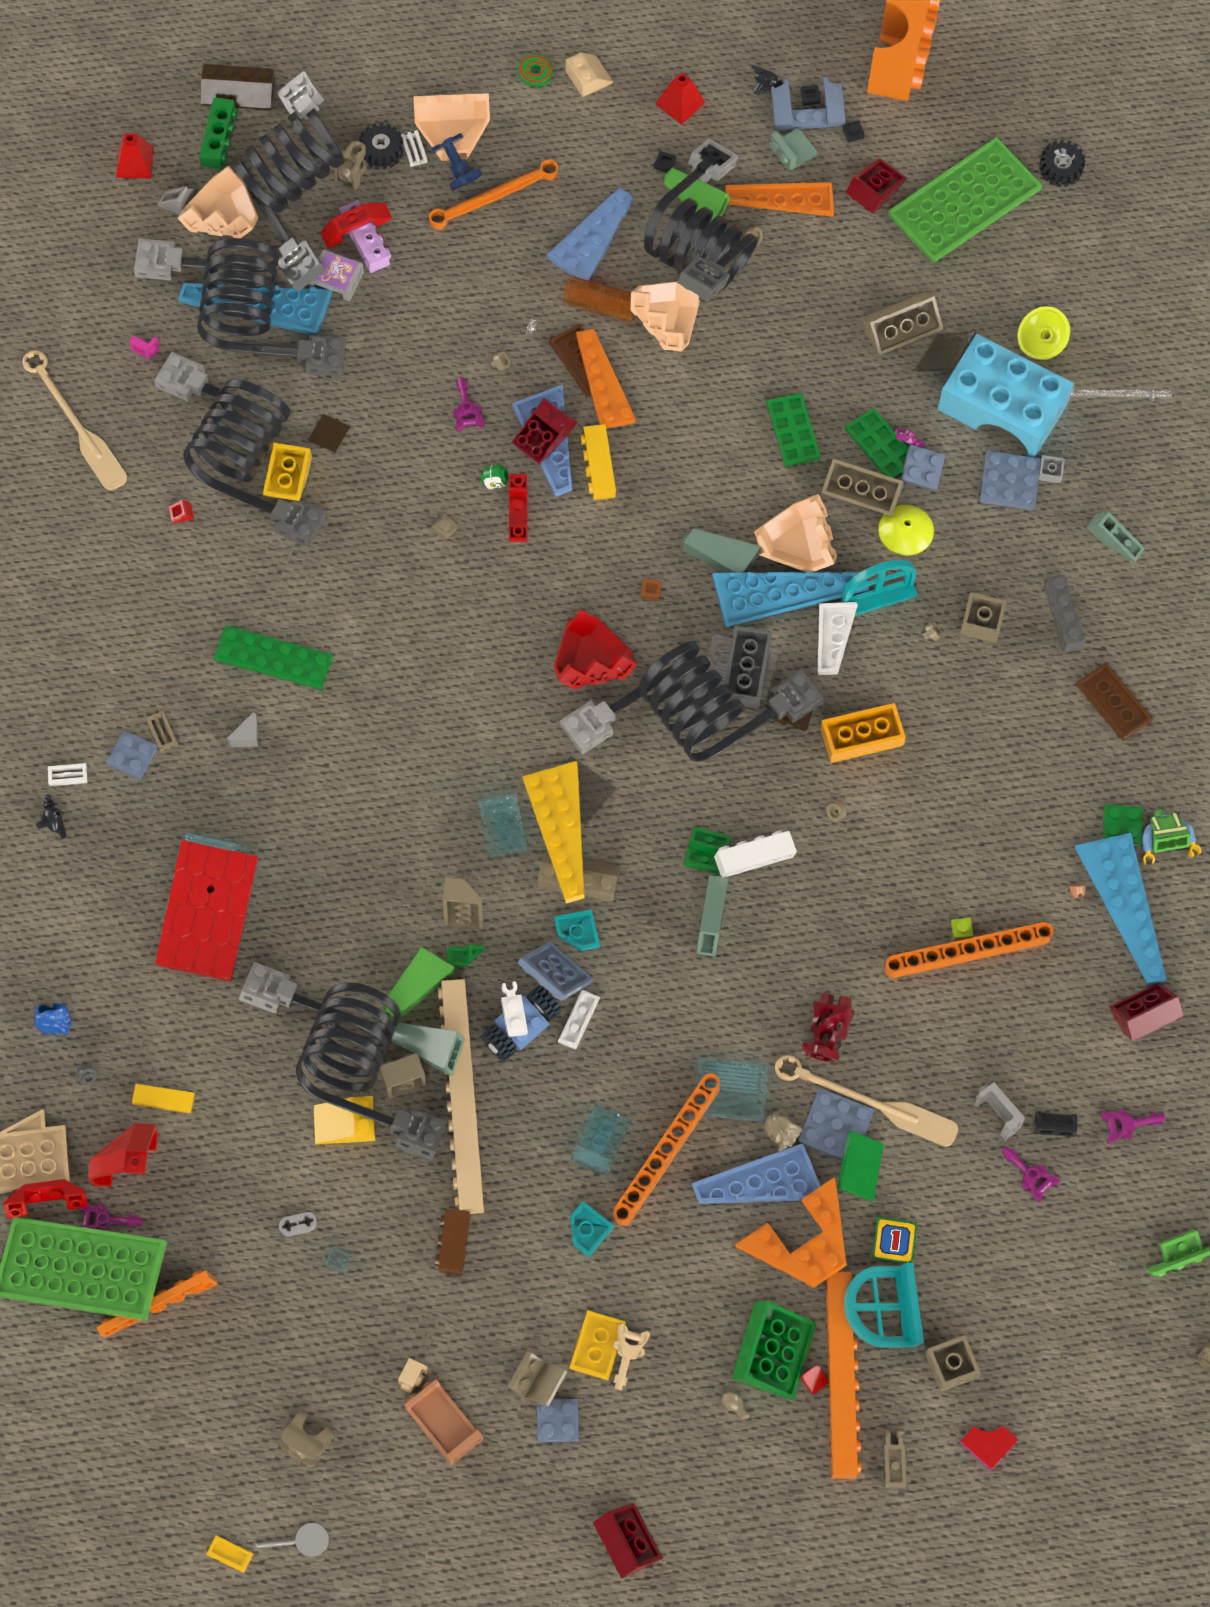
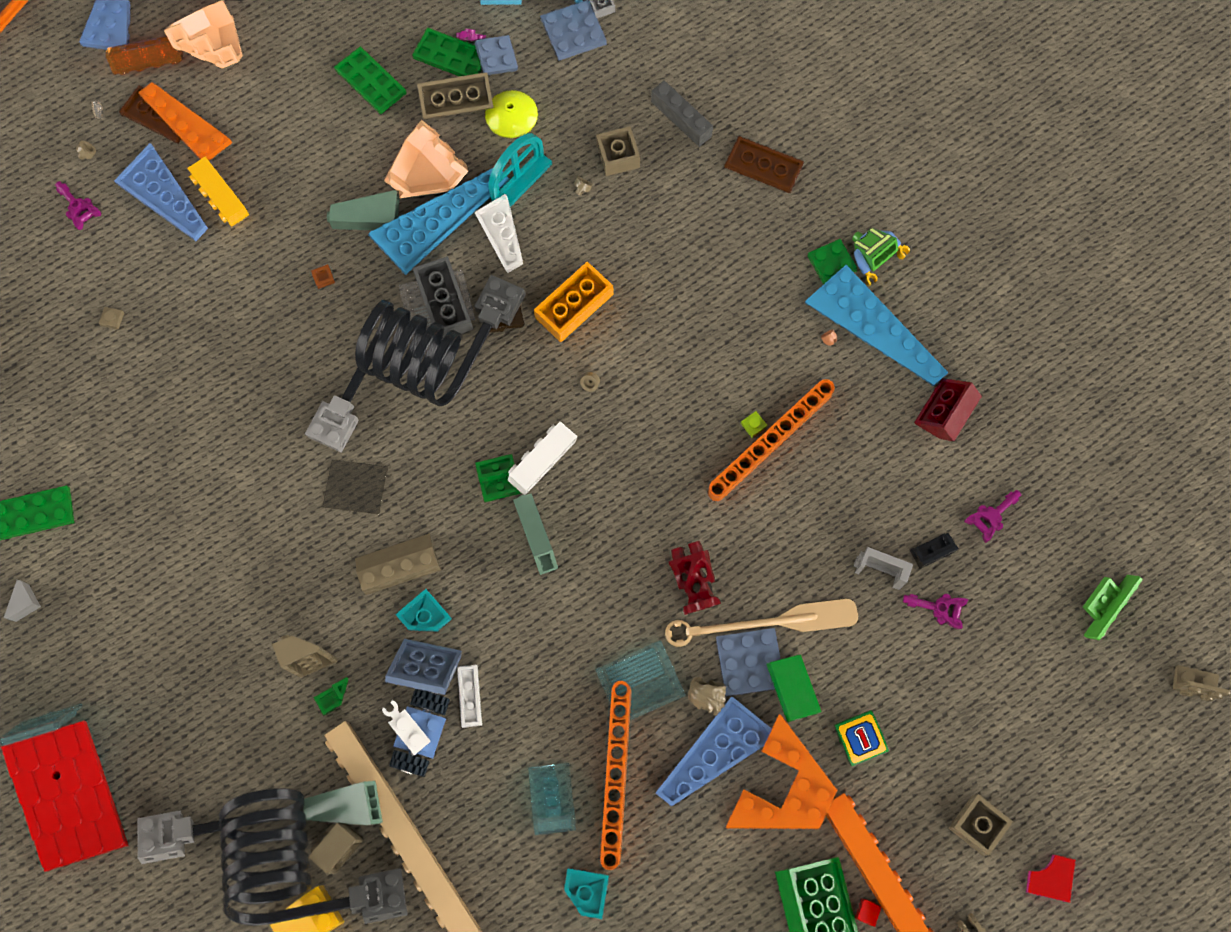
camera: 25 degrees left, 5 degrees up
(419, 981) = (303, 747): bright green slope -> none
(495, 476) = (132, 251): green head -> none
(502, 824) = (302, 555): clear light blue slope -> none
(518, 508) = (167, 266): red slope -> none
(544, 431) = (154, 189): dark red slope -> none
(557, 811) = (346, 516): yellow wing -> none
(591, 653) = (300, 359): red panel -> none
(907, 1306) = (907, 792): teal window -> none
(1115, 536) = (683, 29): sand green slope -> none

